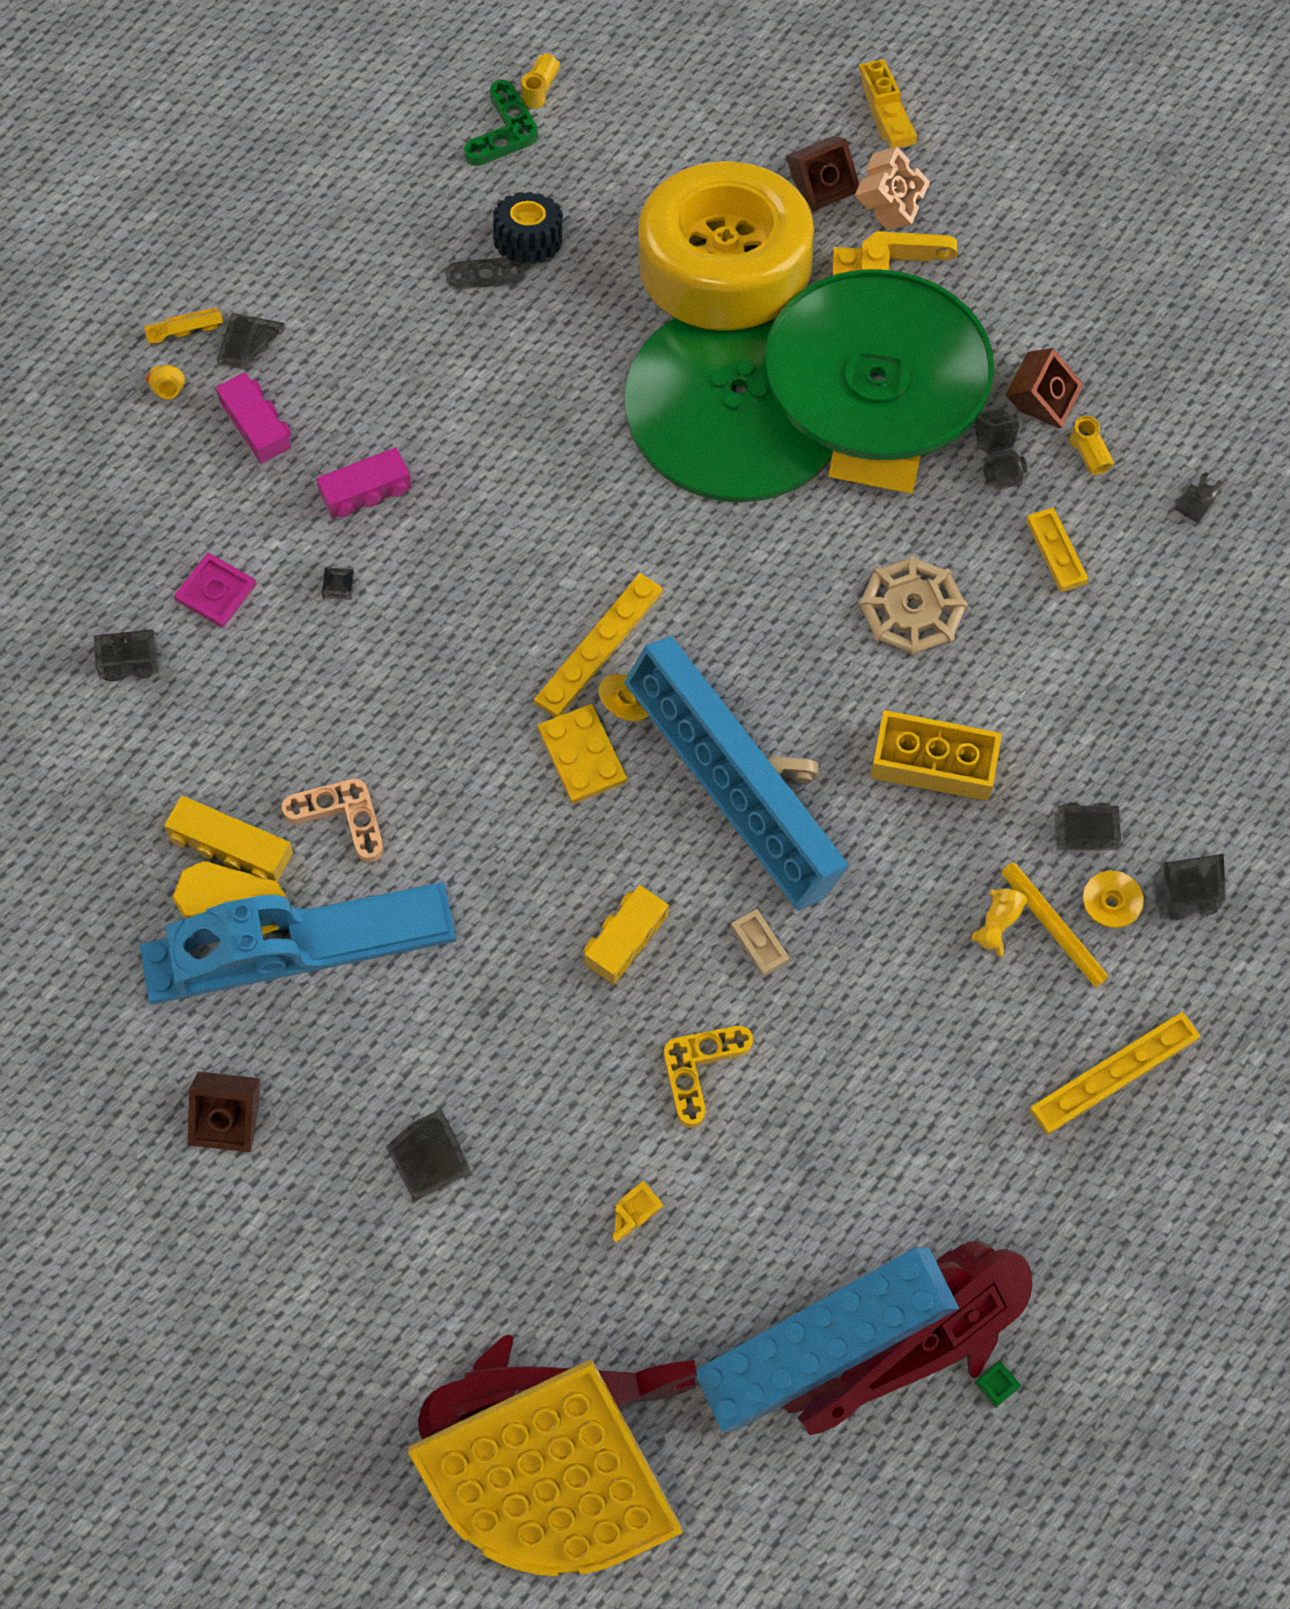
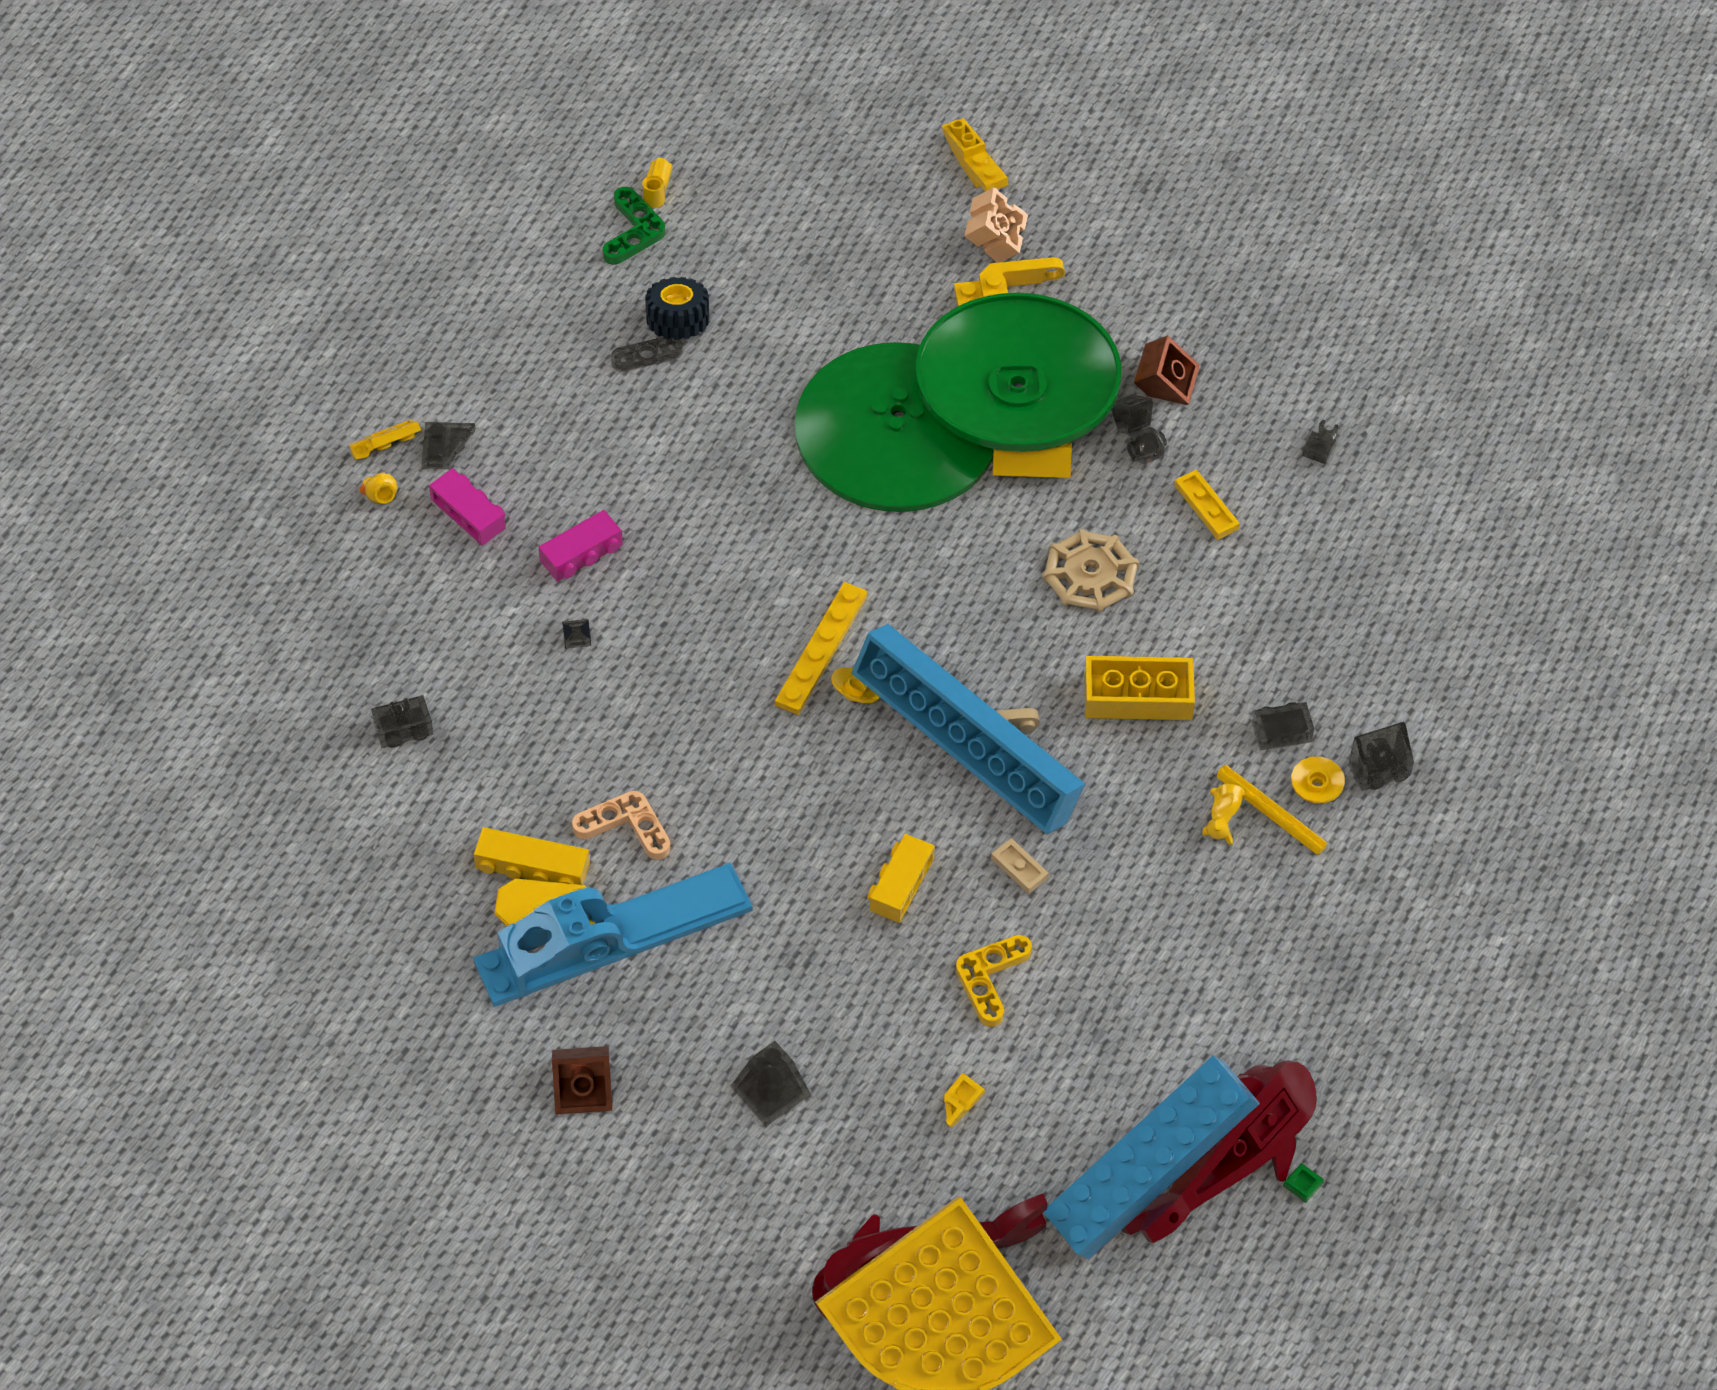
camera: 10 degrees left, 10 degrees down
(215, 590) = (467, 657): dark pink tile -> none
(582, 753) = (827, 739): yellow plate -> none
(731, 208) = (860, 325): yellow wheel -> none
(824, 172) = (931, 221): copper slope -> none
(1091, 447) = (1217, 413): yellow piece -> none
(1114, 1073) = (1349, 919): yellow plate -> none

